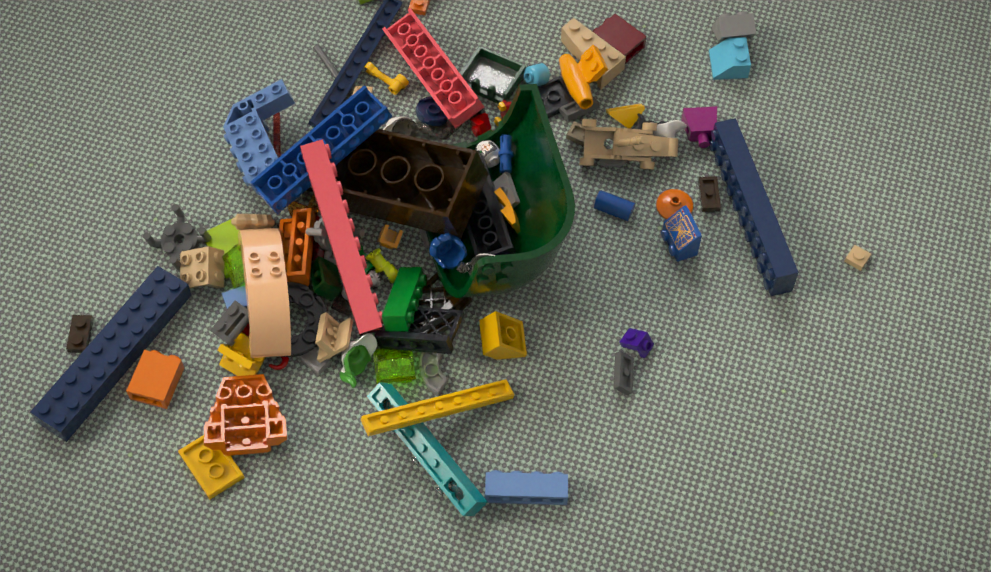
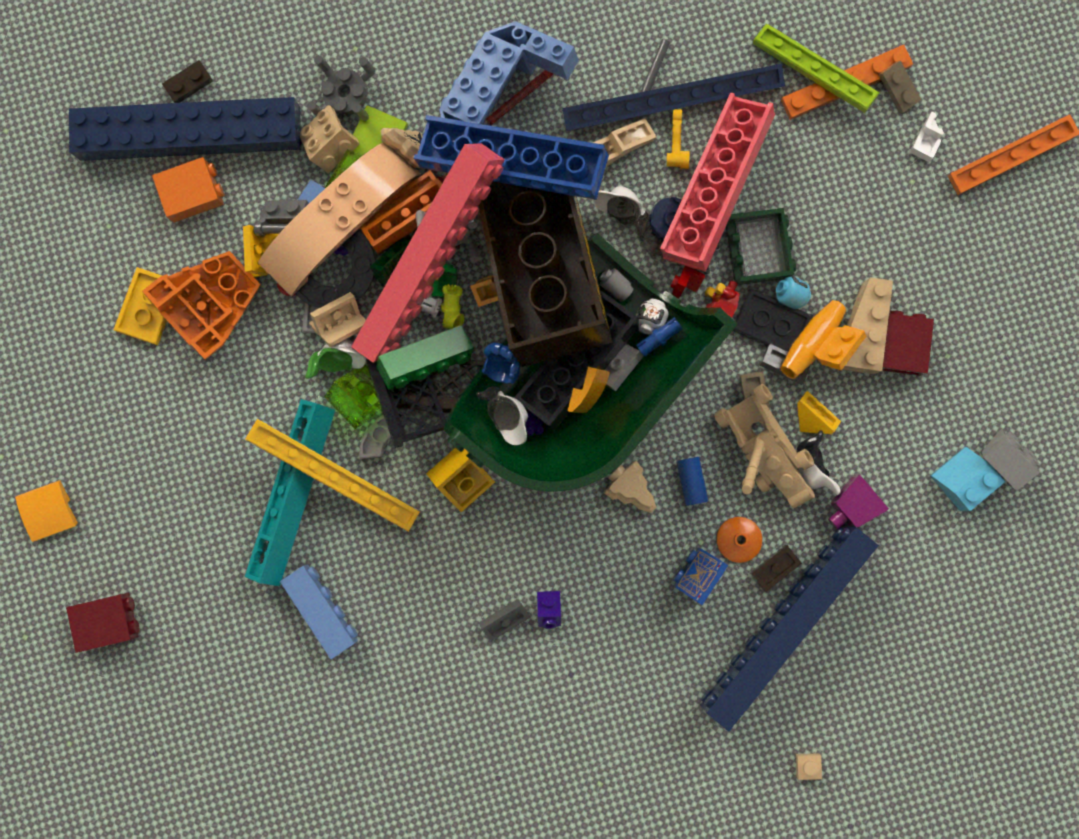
camera: 60 degrees right, 25 degrees up
(590, 241) = (630, 487): none -> tan rock

